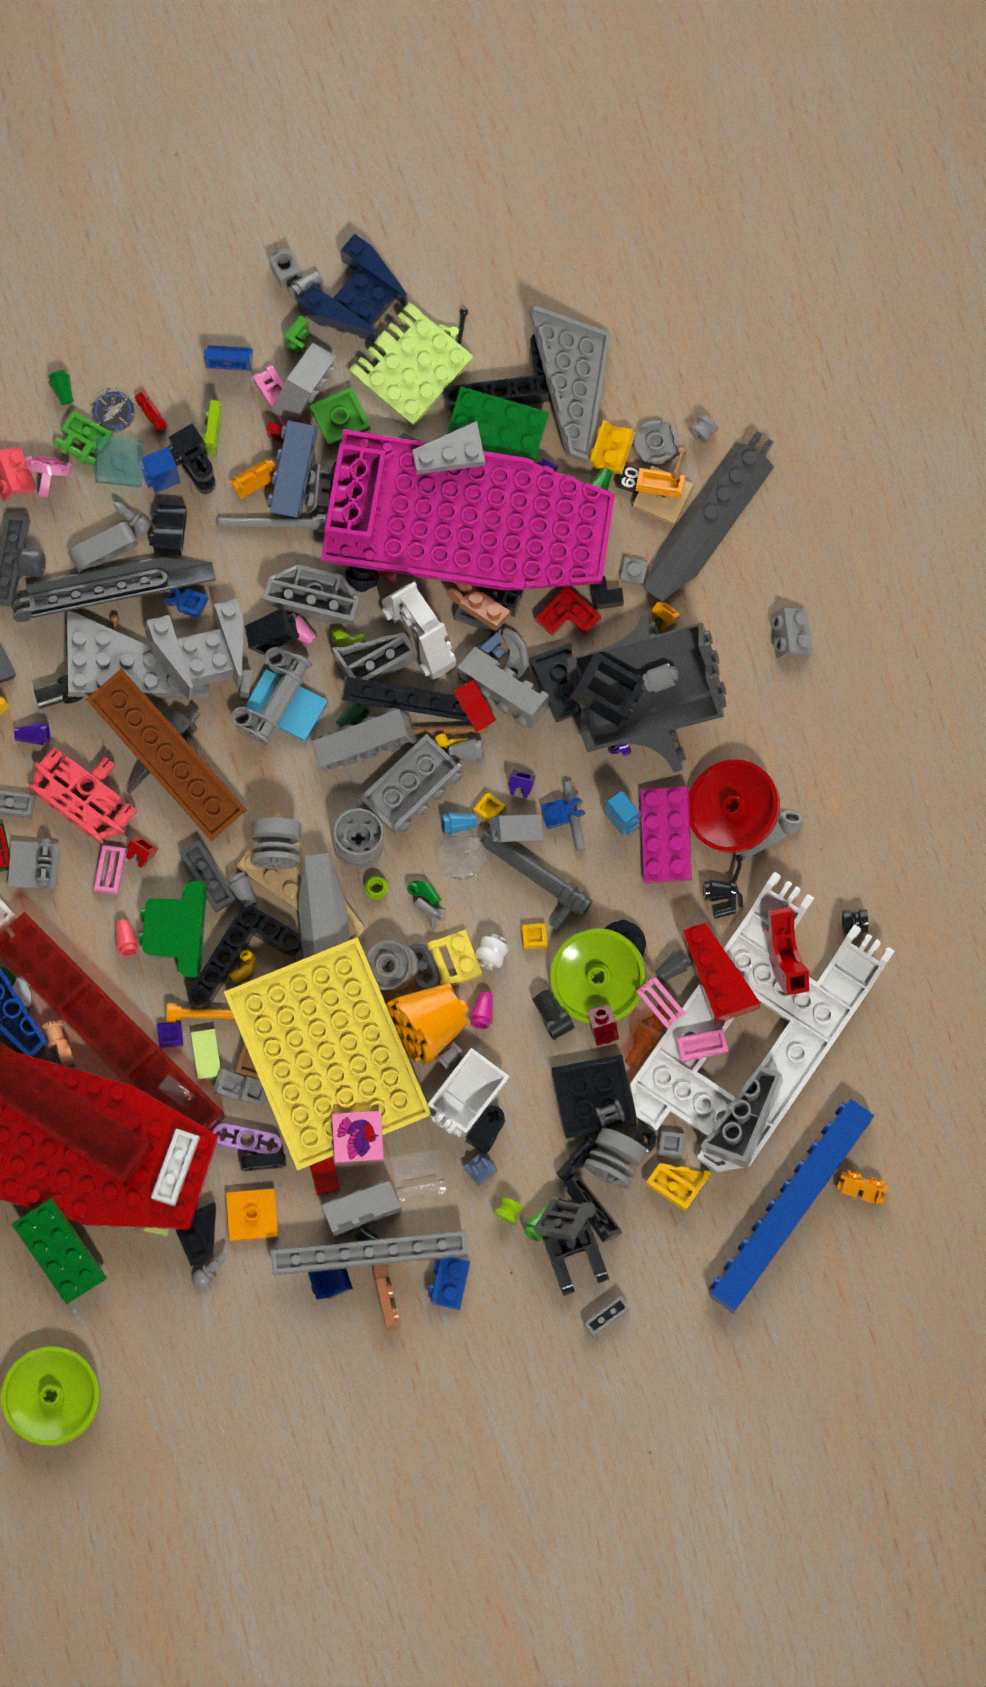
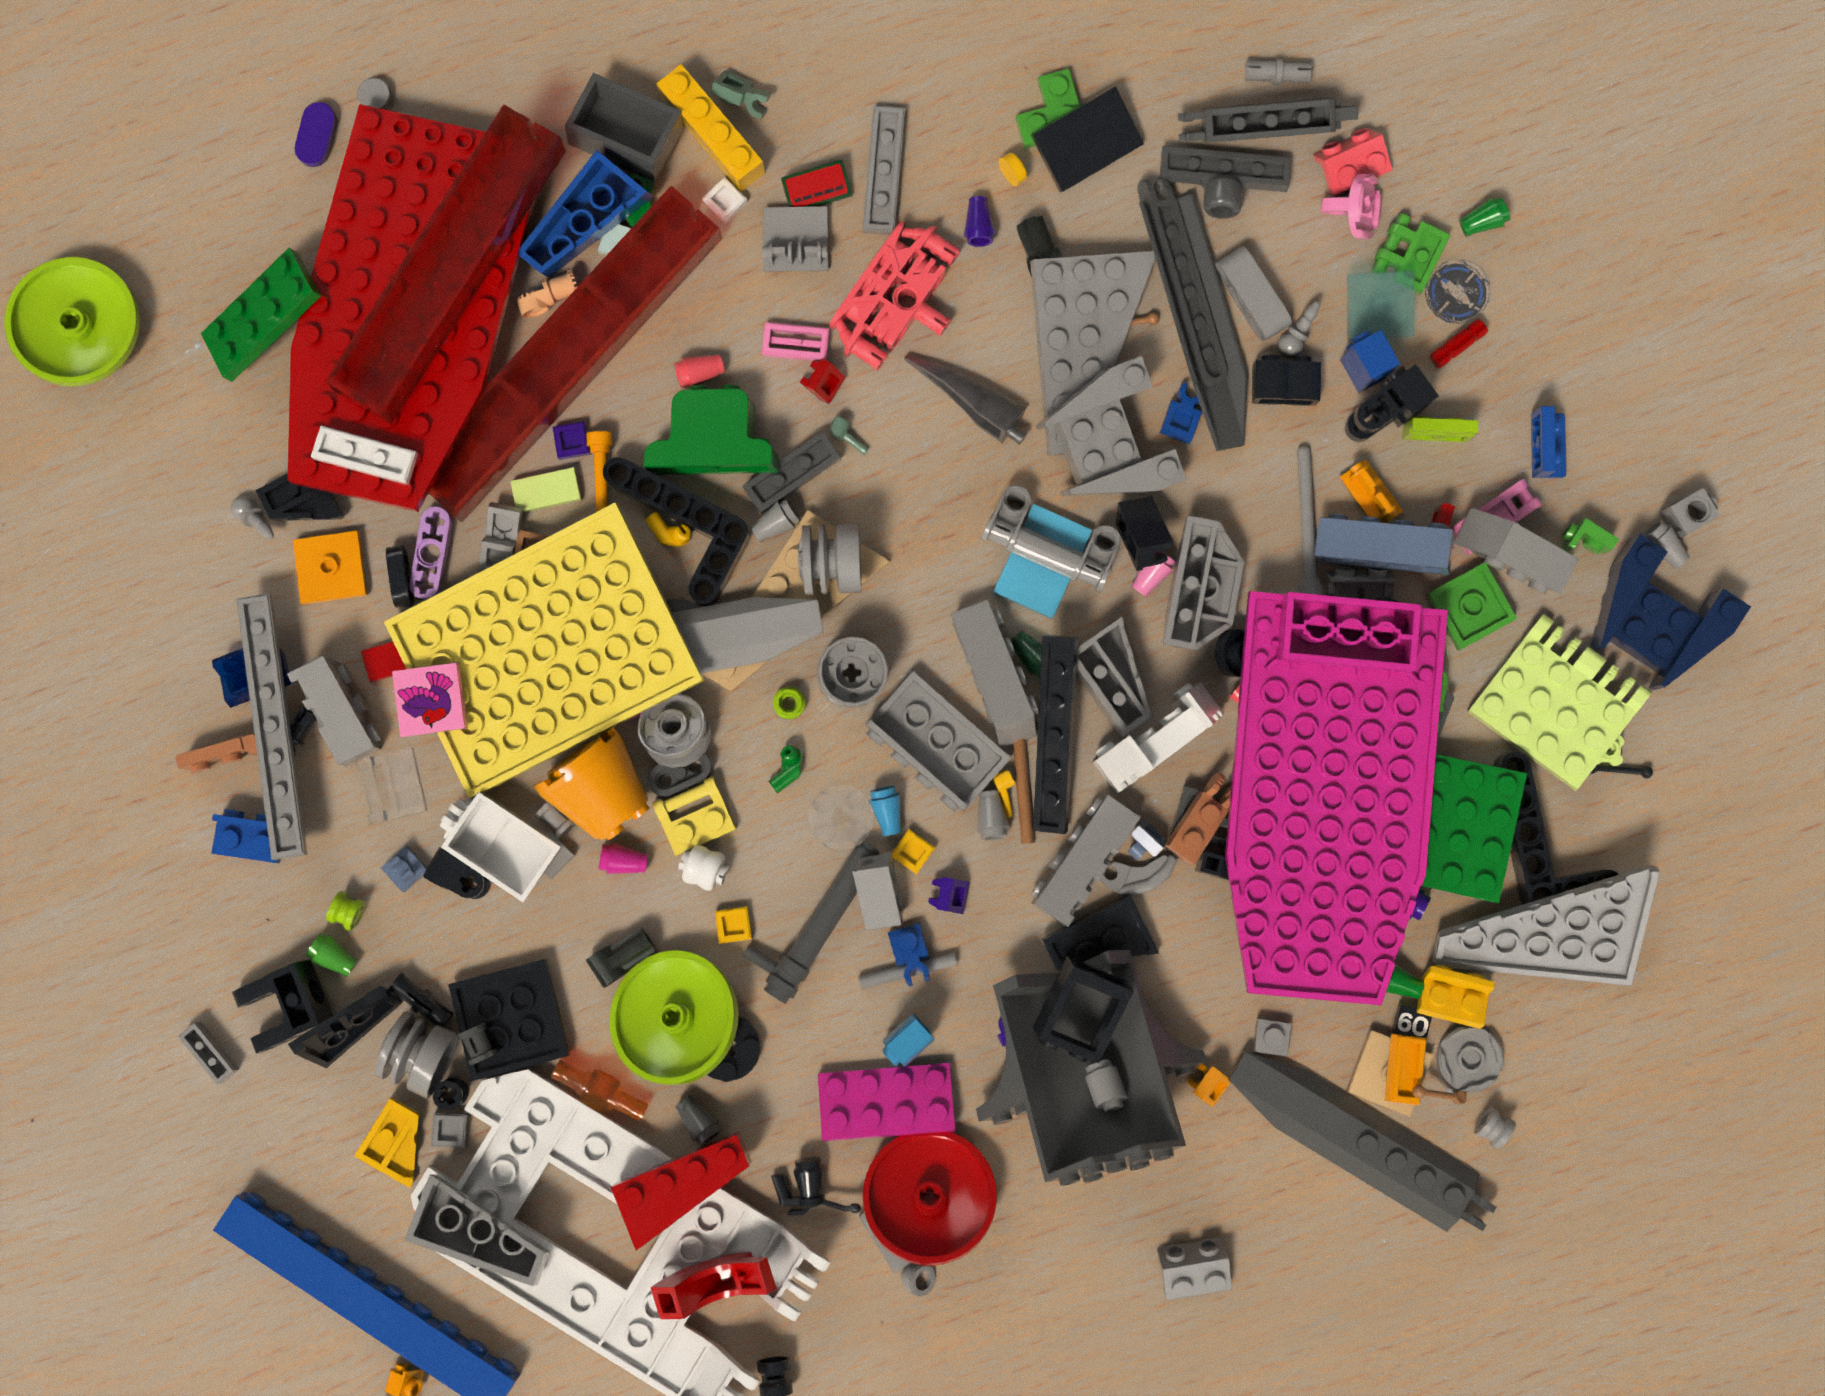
camera: 85 degrees right, 10 degrees up
(166, 754) = (955, 400): dark orange plate -> none
(176, 1091) = (488, 451): clear window -> none
(177, 842) = (839, 430): none -> sand green hand
(245, 684) = (1067, 503): light grey tile -> none
(343, 639) = (1142, 636): lime arm -> none
(430, 911) = (759, 780): light grey bar -> none
(450, 452) = (1424, 766): light grey wing -> none
(474, 705) = (1053, 822): red tile -> none
(563, 1225) = (313, 984): dark grey plate -> none
(566, 607) = (1211, 945): red plate -> none
(603, 1025) = (608, 1027): dark red bracket -> none
(606, 598) = (1229, 998): black piece -> none
(673, 1016) = (621, 1123): bright pink tile -> none
(702, 1045) = (583, 1167): bright pink tile -> none

